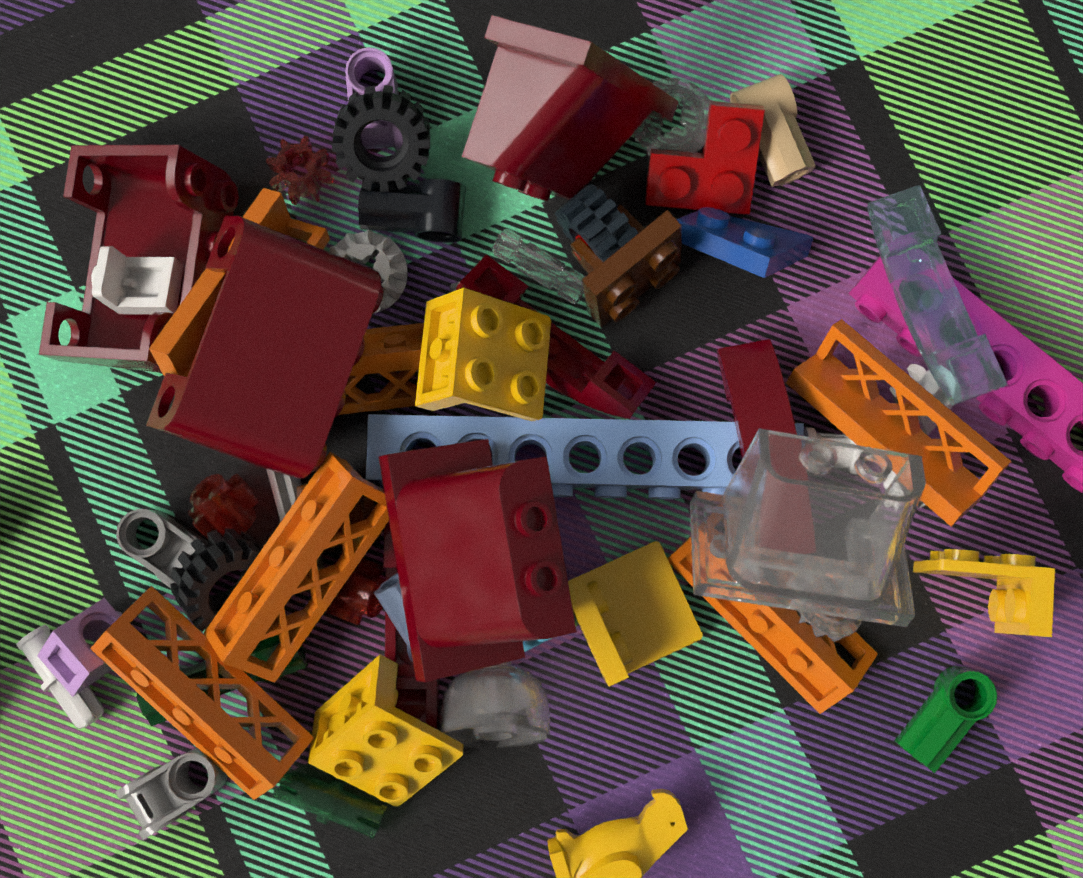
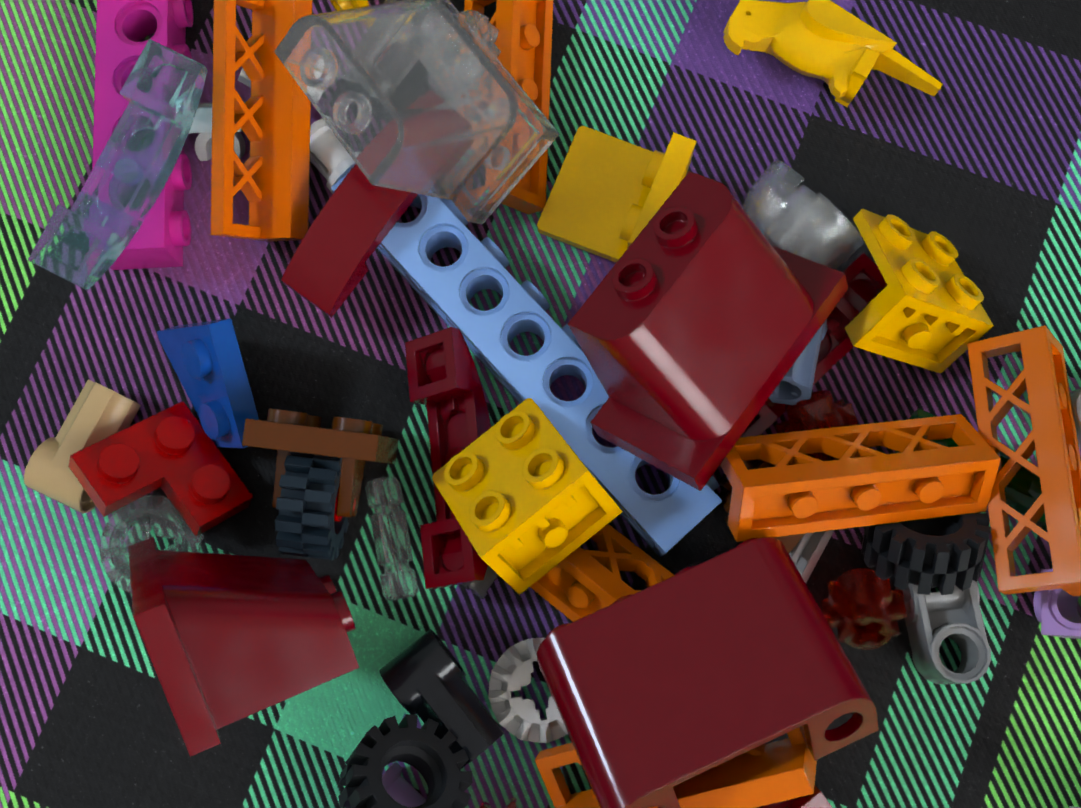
camera: 130 degrees left, 5 degrees down
(330, 802) = (999, 289): clear green pin -> none

